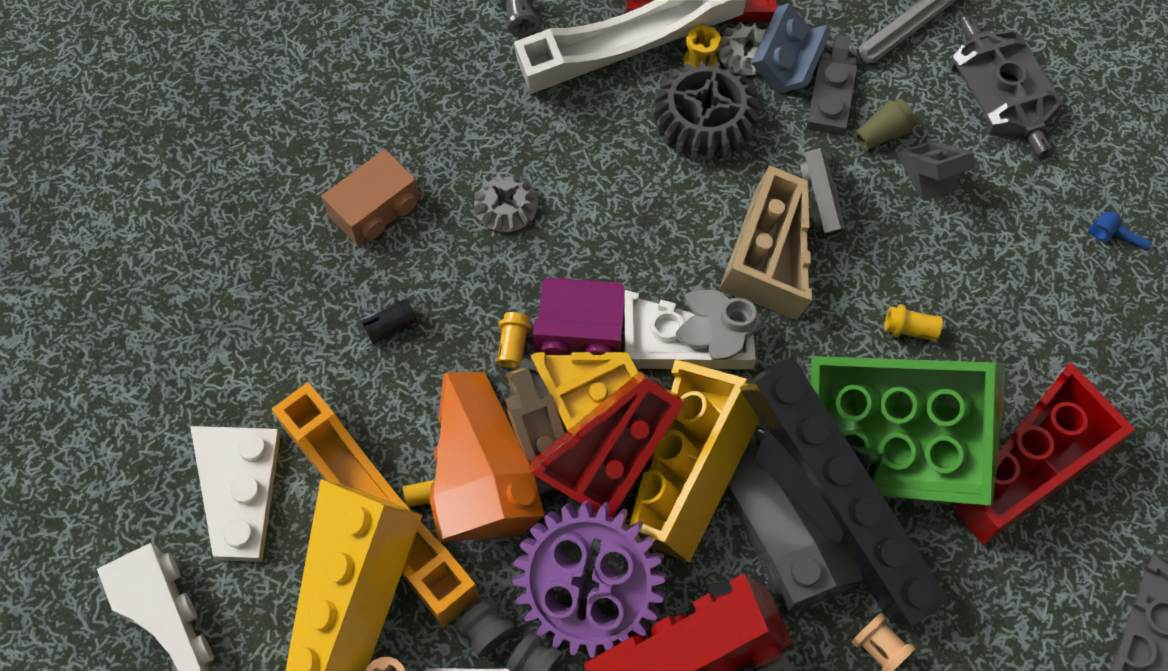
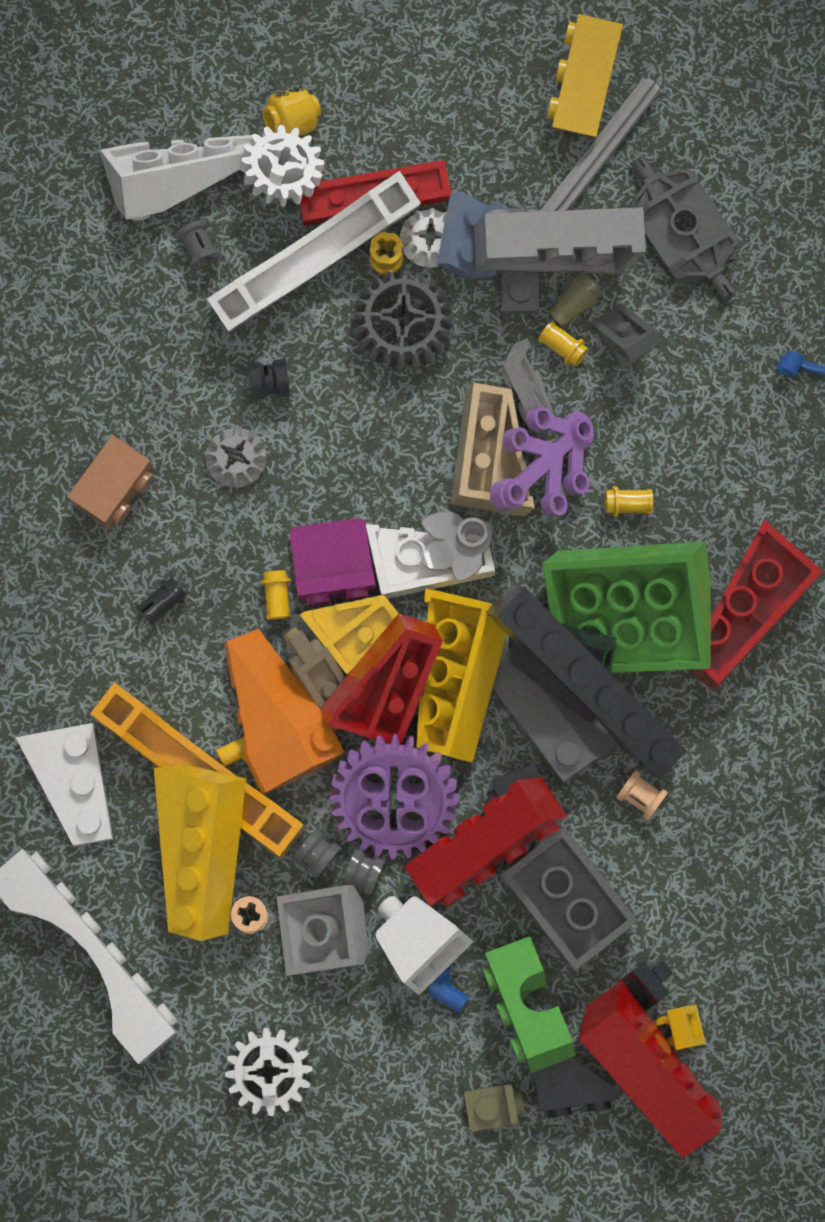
camera: 15 degrees left, 15 degrees up
(557, 136) = (268, 379): none -> black wheel
(864, 245) = (574, 435): none -> medium lavender plant
(870, 166) = (563, 344): none -> yellow pin
(884, 60) = (560, 240): none -> light grey wedge

